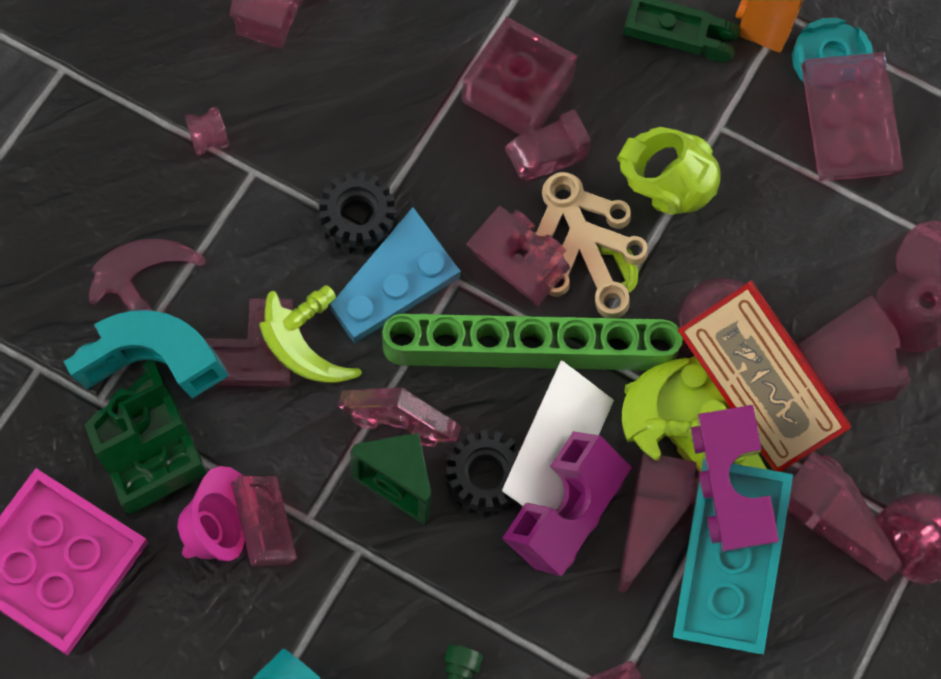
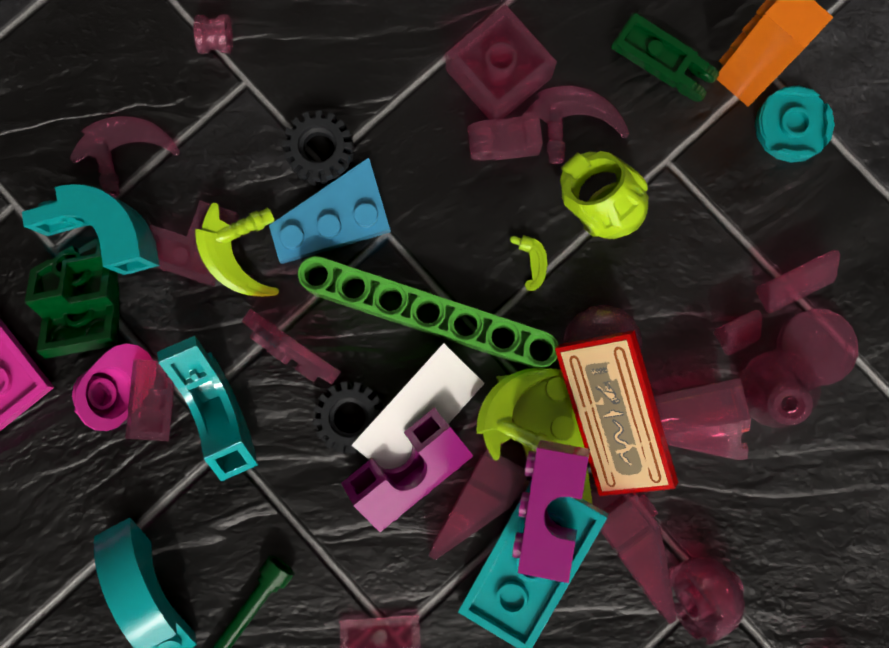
camera: 25 degrees right, 15 degrees up
(333, 503) = (214, 407): none -> teal arch
(395, 472) = (270, 402): dark green slope -> none
(530, 275) = (426, 220): clear pink brick -> none
(587, 236) = (507, 231): tan plant -> none
(599, 96) = (571, 100): none -> clear pink piece
(852, 116) = (790, 188): clear pink plate -> none
(856, 268) = (740, 332): none -> clear pink slope
(896, 202) = (799, 281): none -> clear pink slope

